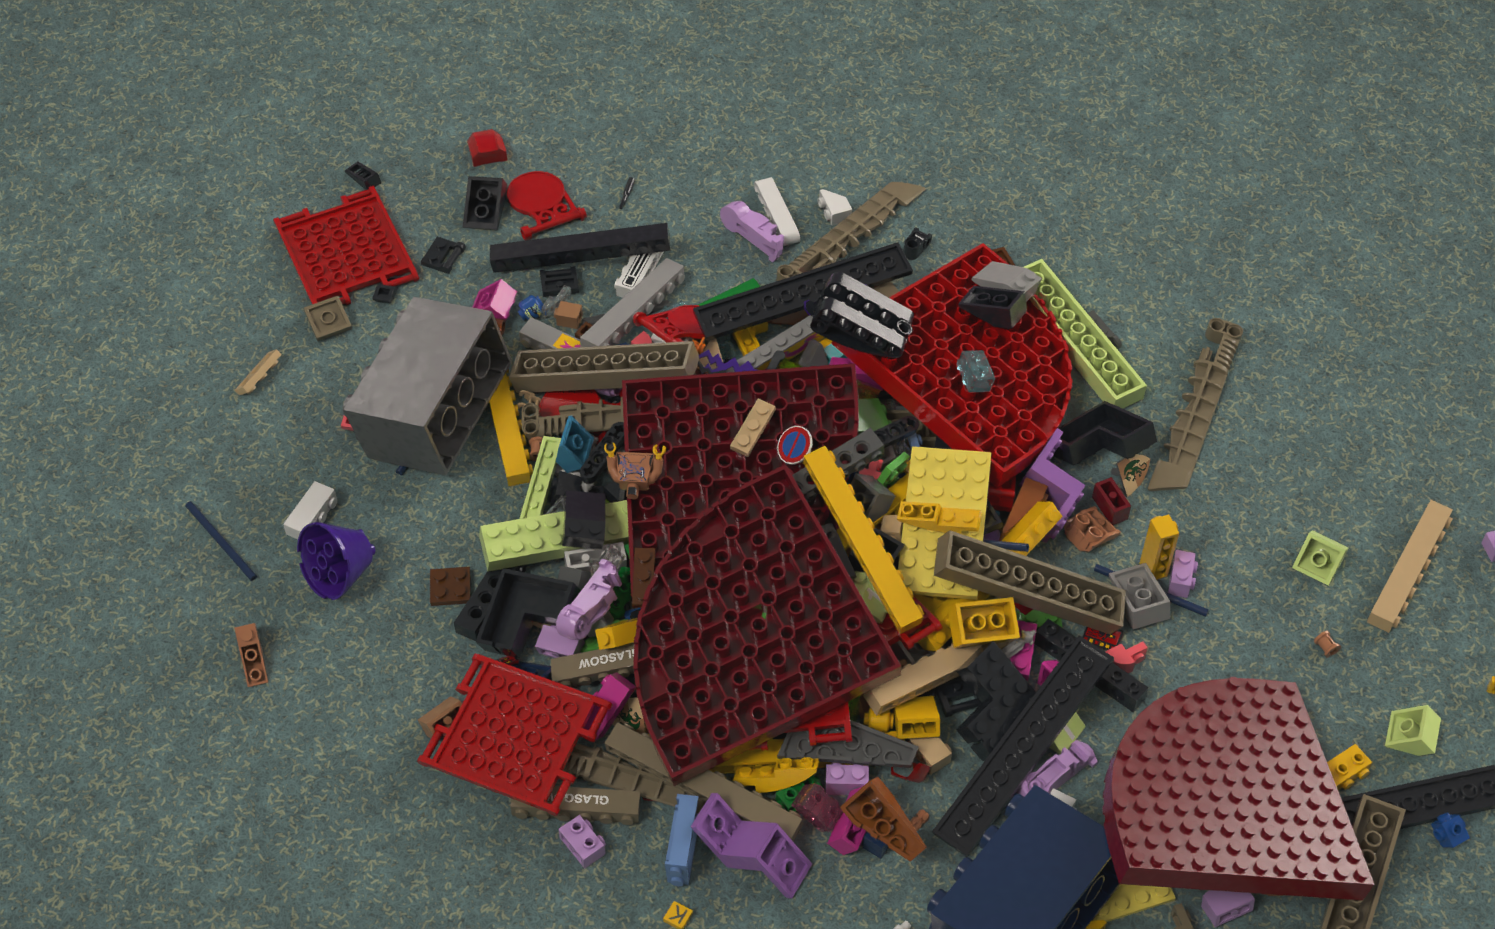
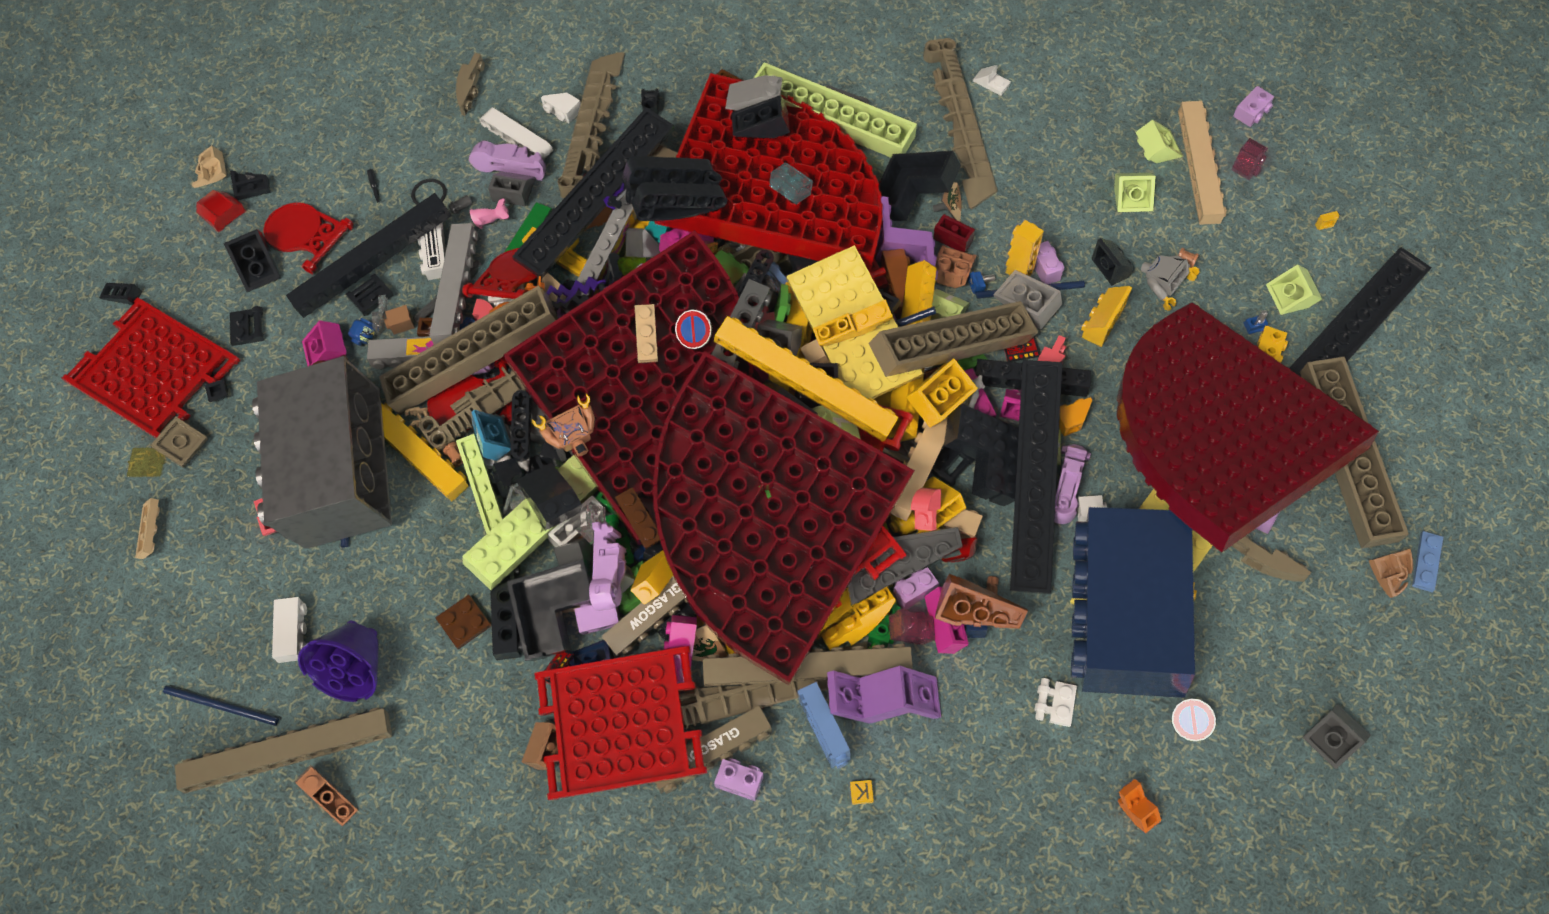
camera: 30 degrees left, 10 degrees up
(244, 602) = (282, 750): none -> dark tan brick
(291, 321) = (145, 463): none -> clear yellow piece
(506, 106) = (210, 167): none -> tan slope
(524, 140) = (249, 185): none -> black wing
(674, 212) = (425, 181): none -> black piece
(686, 246) = (460, 204): none -> dark grey pin
(700, 266) = (484, 216): none -> bright pink animal
(739, 254) = (511, 187): none -> dark grey slope
(763, 146) = (466, 82): none -> dark tan slope
(900, 706) = (926, 503): none -> coral brick
(1055, 554) = (947, 305): none -> yellowish green slope
(1105, 554) = (977, 281): none -> blue piece
(1105, 720) = (1073, 416): none -> light orange slope
(1204, 650) = (1106, 314): none -> yellow slope
(1247, 605) = (1111, 261): none -> black slope
(1257, 387) = (989, 79): none -> white slope
(1293, 646) = (1166, 275): none -> light grey torso
(1352, 738) = (1257, 323): none -> blue piece
(1380, 526) = (1158, 142): none -> yellowish green slope
(1450, 830) = (1375, 353): blue brick -> none
(1459, 587) = (1250, 159): none -> clear pink brick

